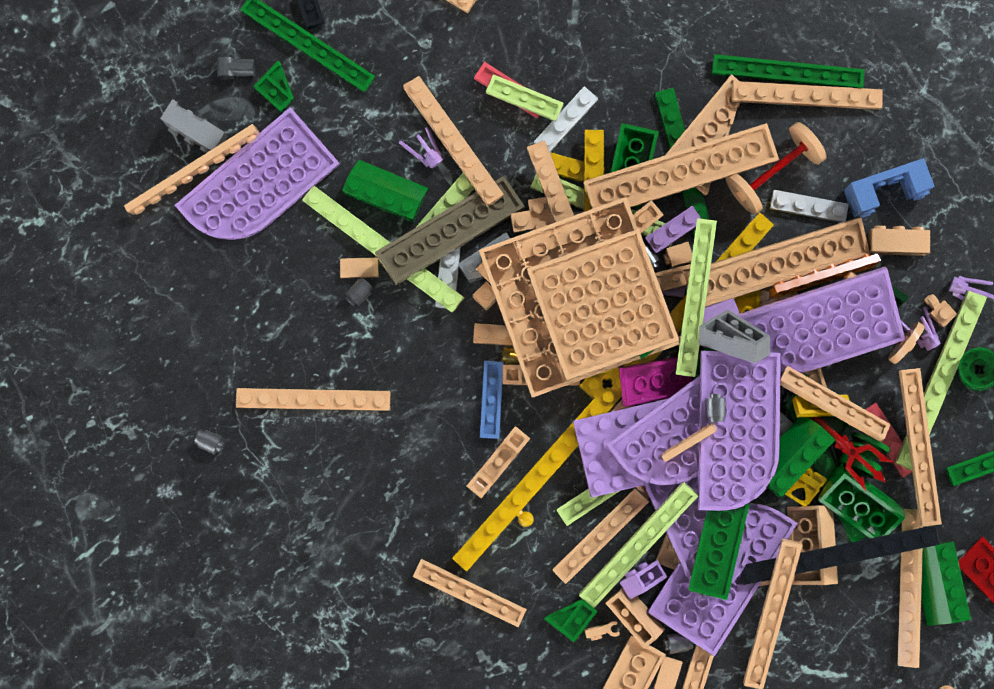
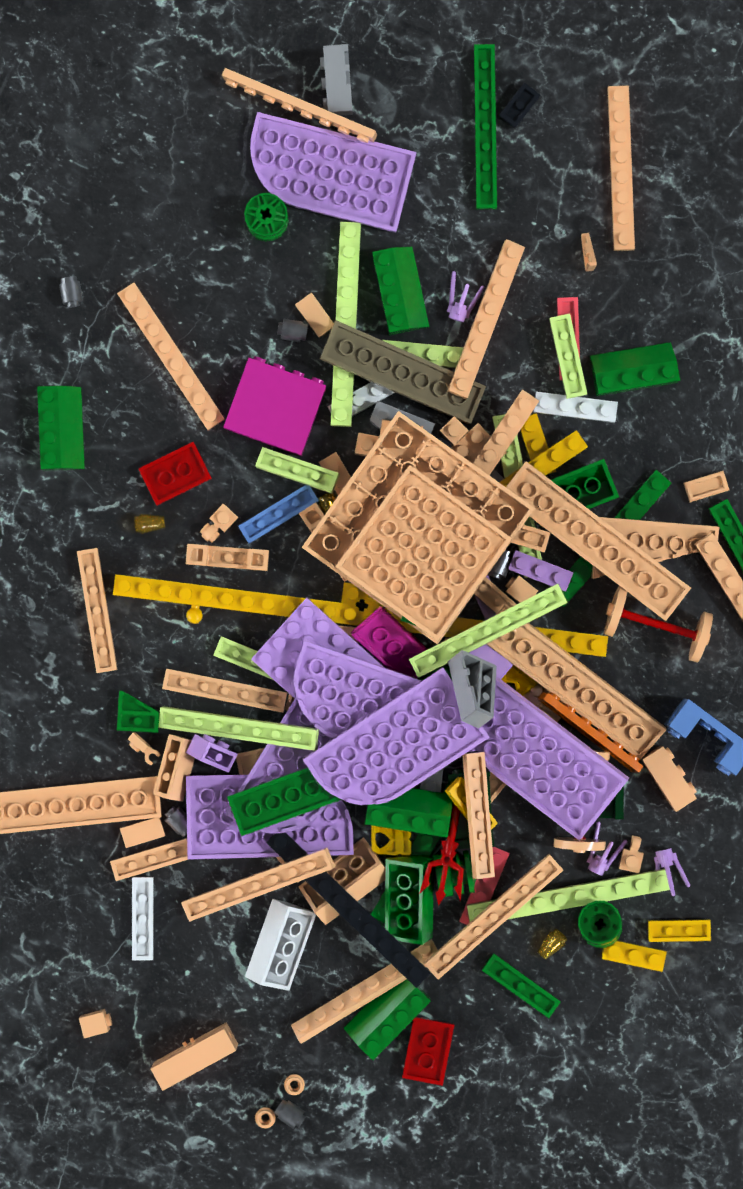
camera: 50 degrees right, 5 degrees up
(229, 68) = (415, 73): dark grey piece -> none
(269, 252) = (270, 228): none -> green wheel
(275, 87) = (425, 126): green wing -> none
(308, 522) = (61, 428): none -> green slope
(405, 458) = (175, 473): none -> red plate
(407, 345) = (275, 406): none -> dark pink brick
(429, 505) = (148, 523): none -> clear yellow cone
(459, 32) = (588, 253): none -> light nougat tile
(465, 446) = (222, 519): none -> light nougat plate
(468, 362) = (297, 470): none -> yellowish green plate
(568, 57) = (634, 369): none -> green slope
(689, 441) = (355, 710): light nougat tile -> none
(693, 64) = (706, 486): none -> light nougat tile
(715, 408) = (400, 713): flat silver brick -> none
(808, 206) = (646, 677): white plate -> none
(829, 630) = (280, 945): none -> white slope
(968, 417) = (552, 944): none -> clear yellow cone

